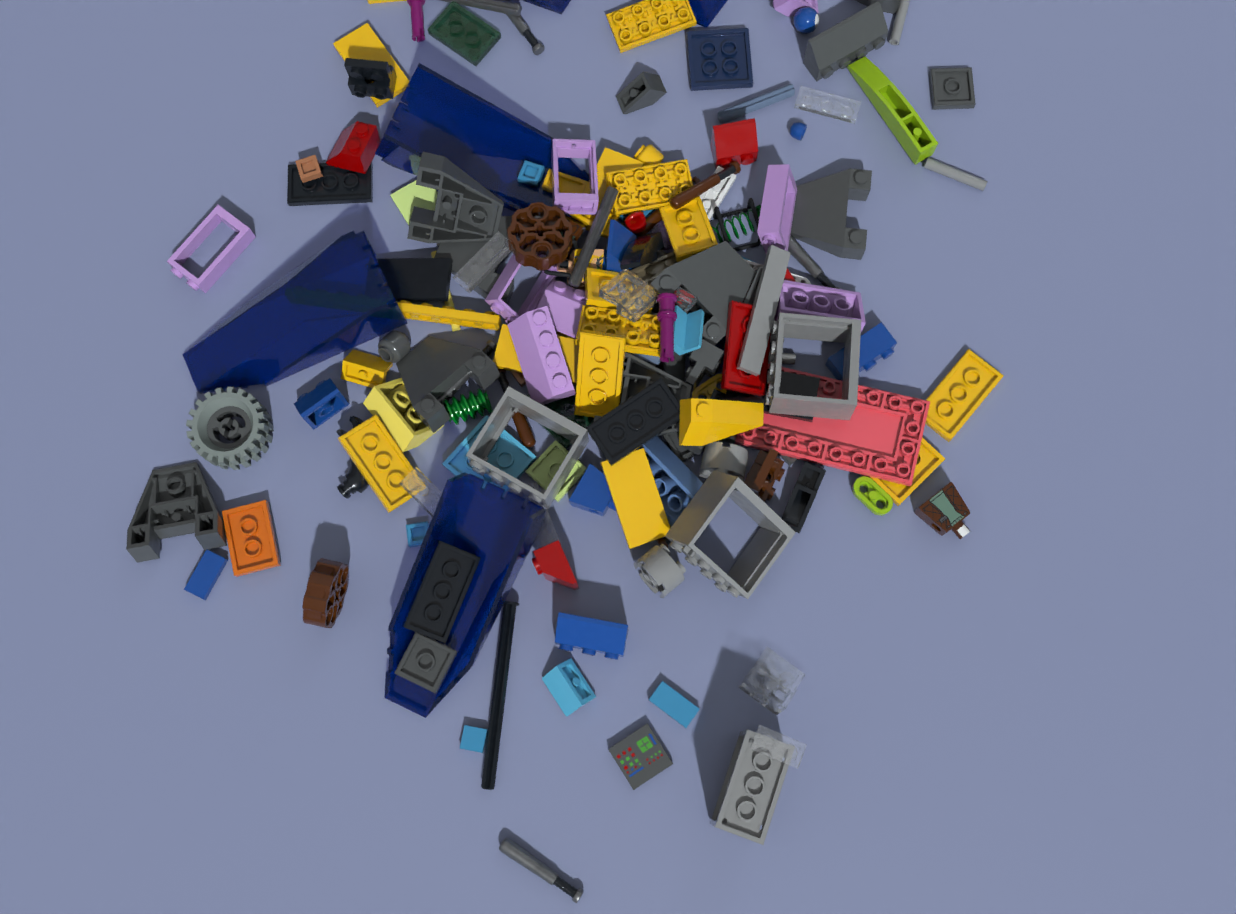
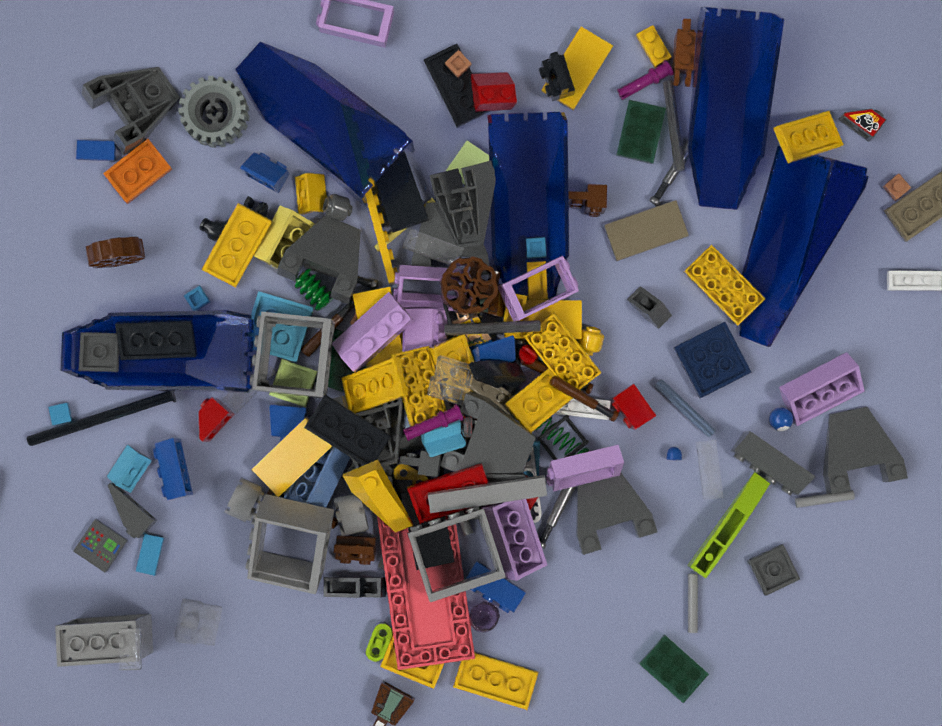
camera: 65 degrees right, 10 degrees up
(422, 490) = (228, 289): clear plate -> none
(510, 94) = (593, 199): none -> reddish brown brick
(563, 69) = (646, 230): none -> dark tan tile
(621, 703) = (132, 514): none -> dark grey slope
(889, 375) = (484, 617): none -> clear purple hair
(1015, 217) = (673, 668): none -> clear green plate

